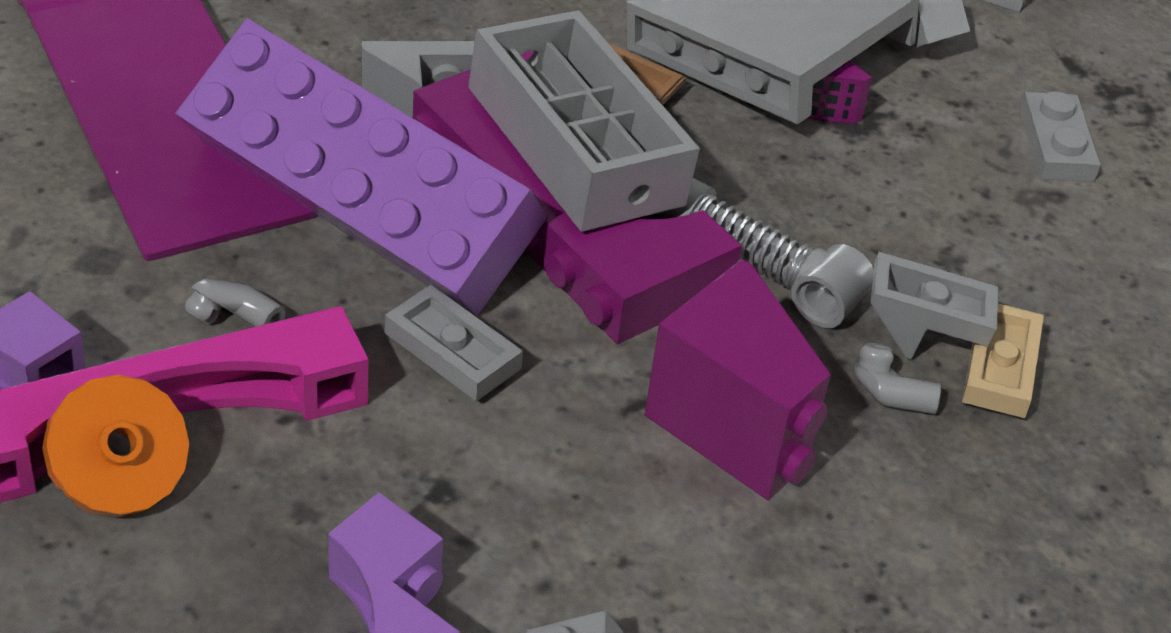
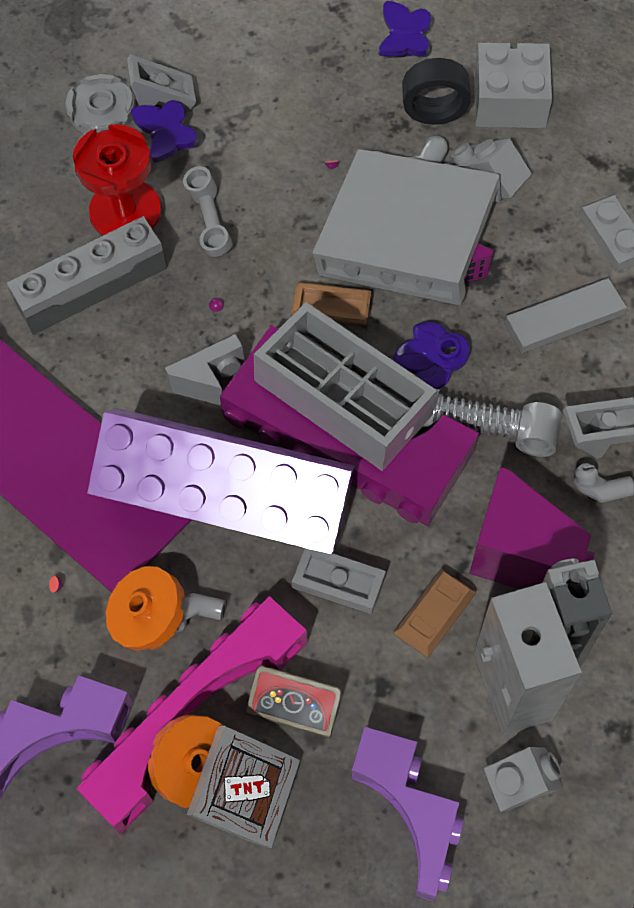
camera: 15 degrees left, 20 degrees up
(76, 218) = (55, 584): none -> coral piece
(165, 504) = (243, 787): none -> light grey tile
(170, 271) = (145, 609): none -> orange plate
(306, 449) = (294, 701): none -> slope
(470, 29) = (216, 304): none -> magenta piece
(567, 435) = (434, 613): none -> medium nougat tile
(648, 467) = (521, 679): none -> light grey brick
(737, 444) = (580, 603): none -> dark grey piece
(739, 166) = (427, 356): none -> dark purple plate
(941, 192) = (565, 315): none -> light grey tile

